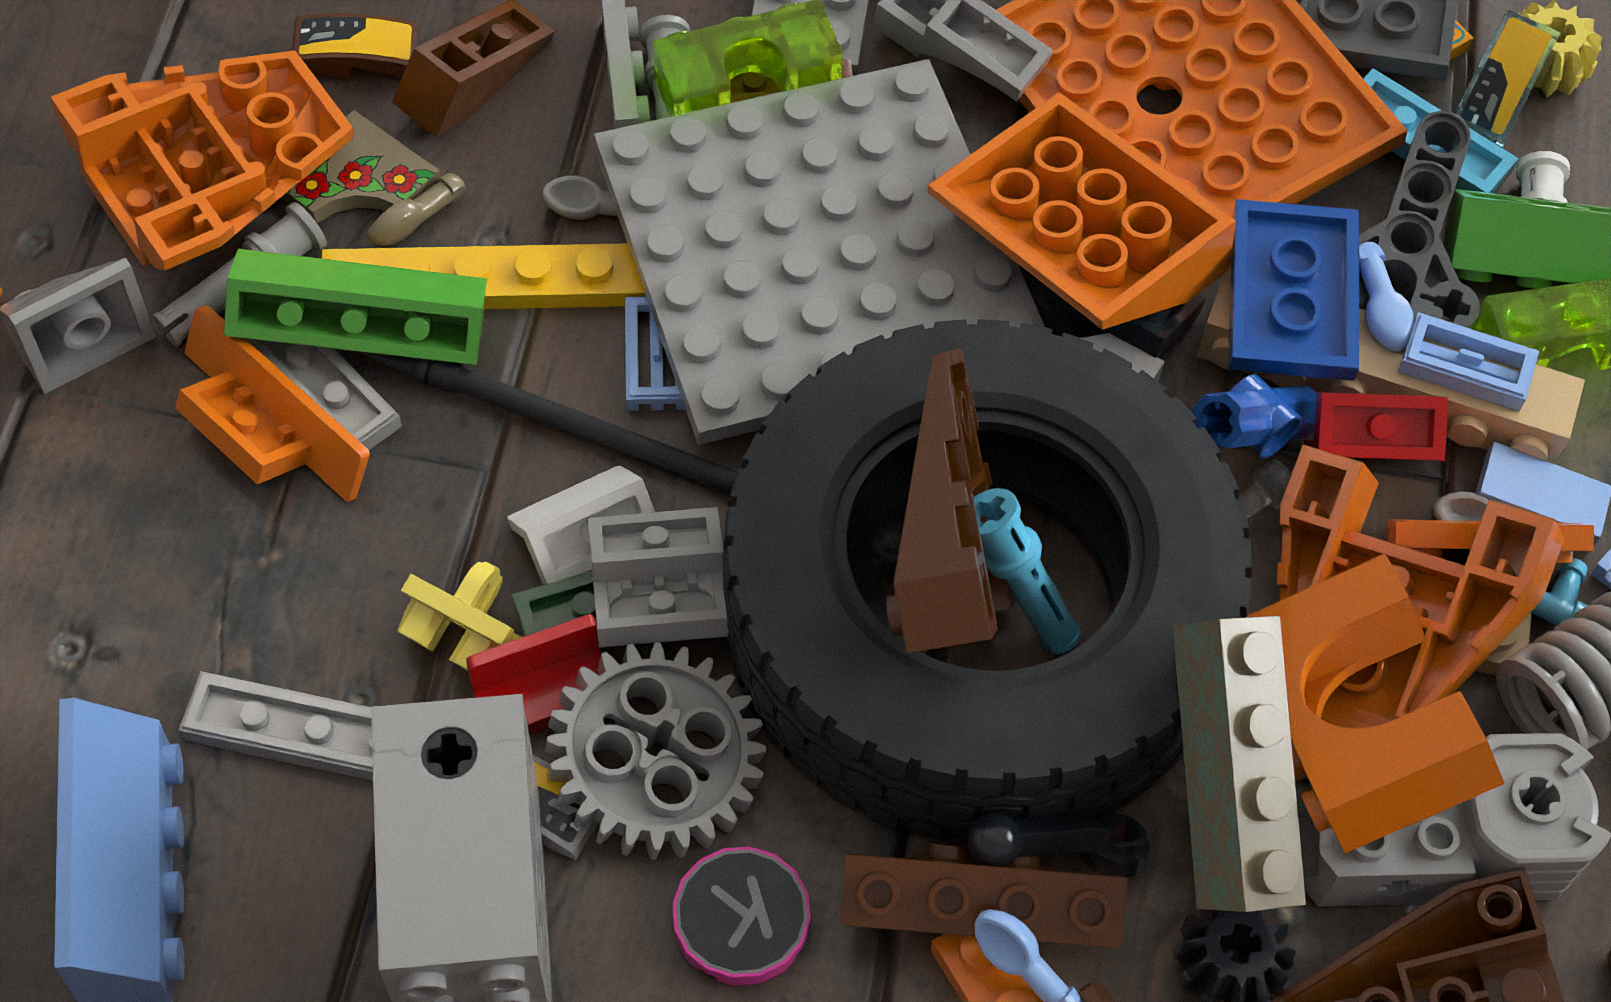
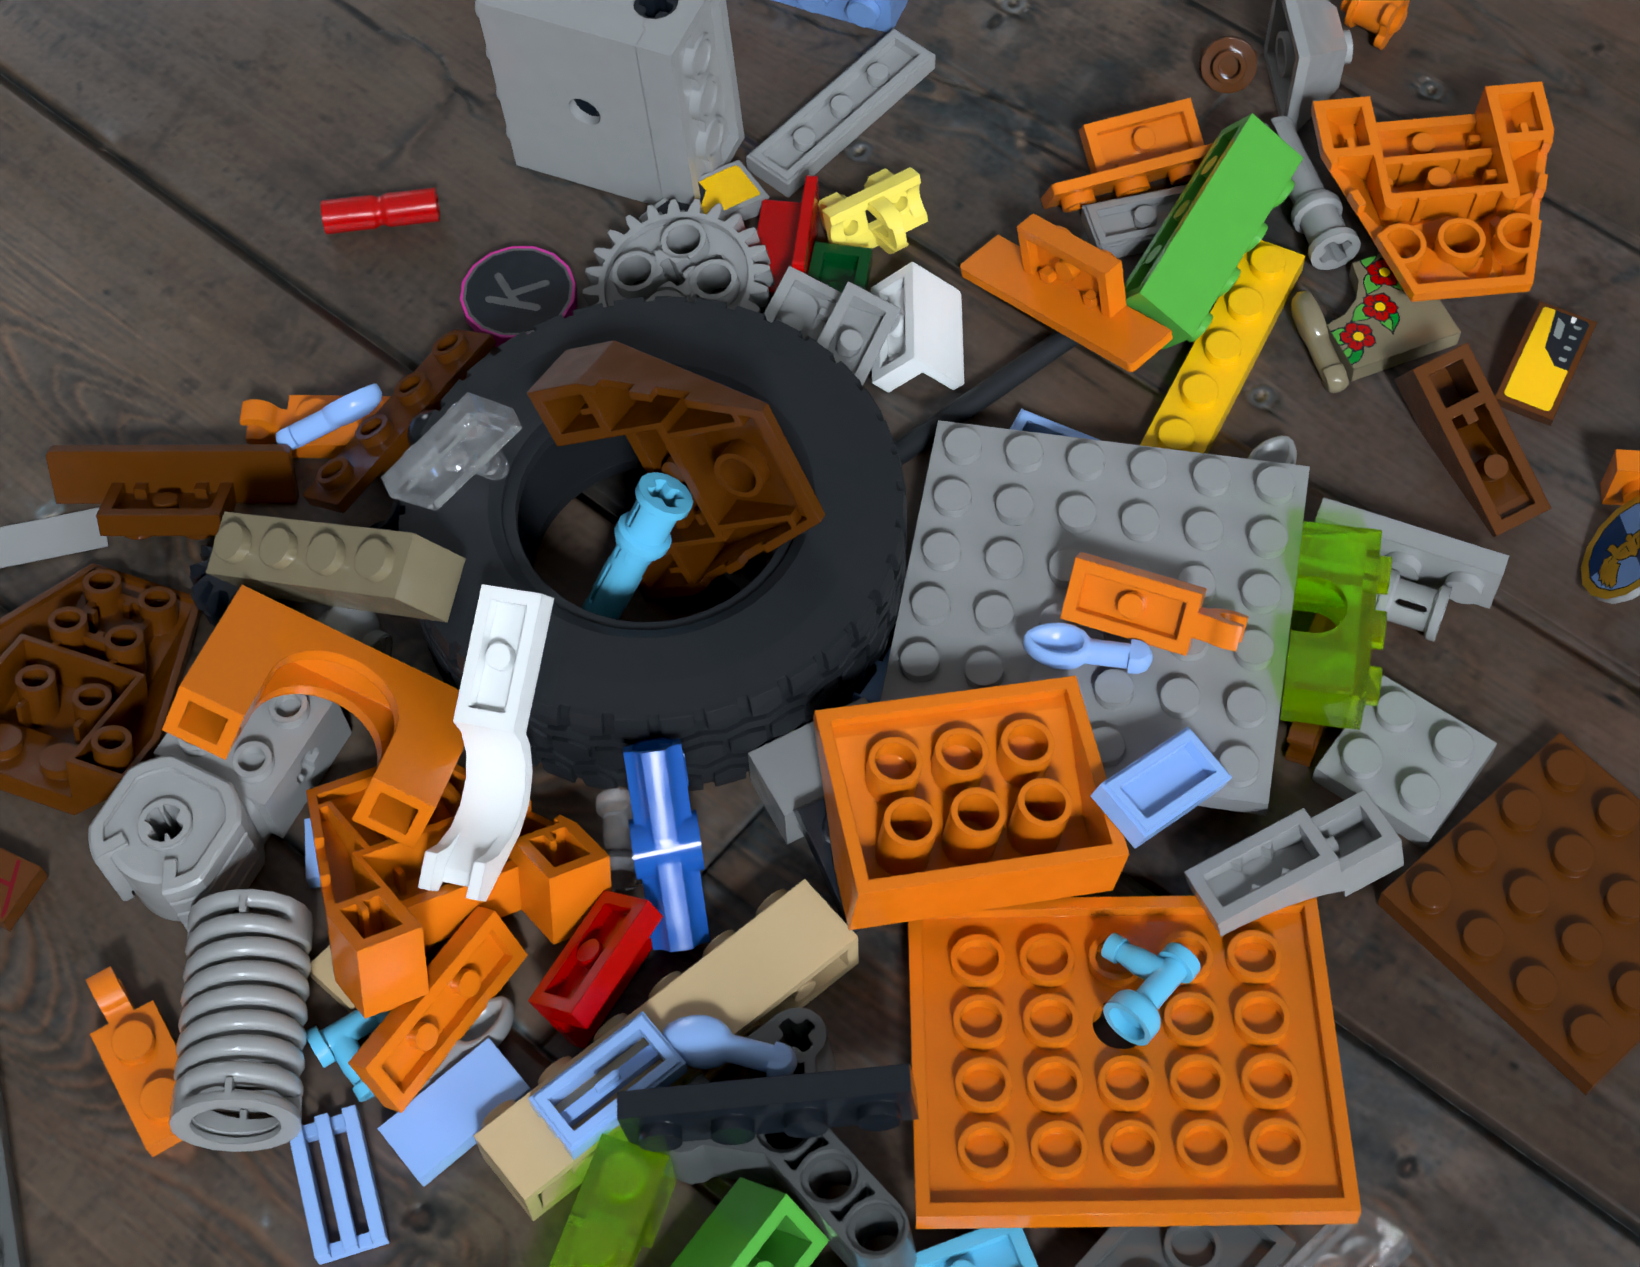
camera: 125 degrees right, 0 degrees up
(91, 402) = (1228, 64): none -> reddish brown plate
(488, 398) = (1068, 289): none -> orange bracket
(826, 169) = (1147, 607): none -> orange plate
(889, 217) = (1070, 647): none -> light blue piece
(984, 97) = (1161, 787): none -> light blue tile
(1083, 655) = (453, 451): none -> clear plate
(1118, 64) = (1136, 1013): none -> medium azure piece
(1277, 545) = (493, 722): none -> white piece
(1294, 290) = (779, 955): blue plate -> none
(1418, 228) = (791, 1104): none -> black plate

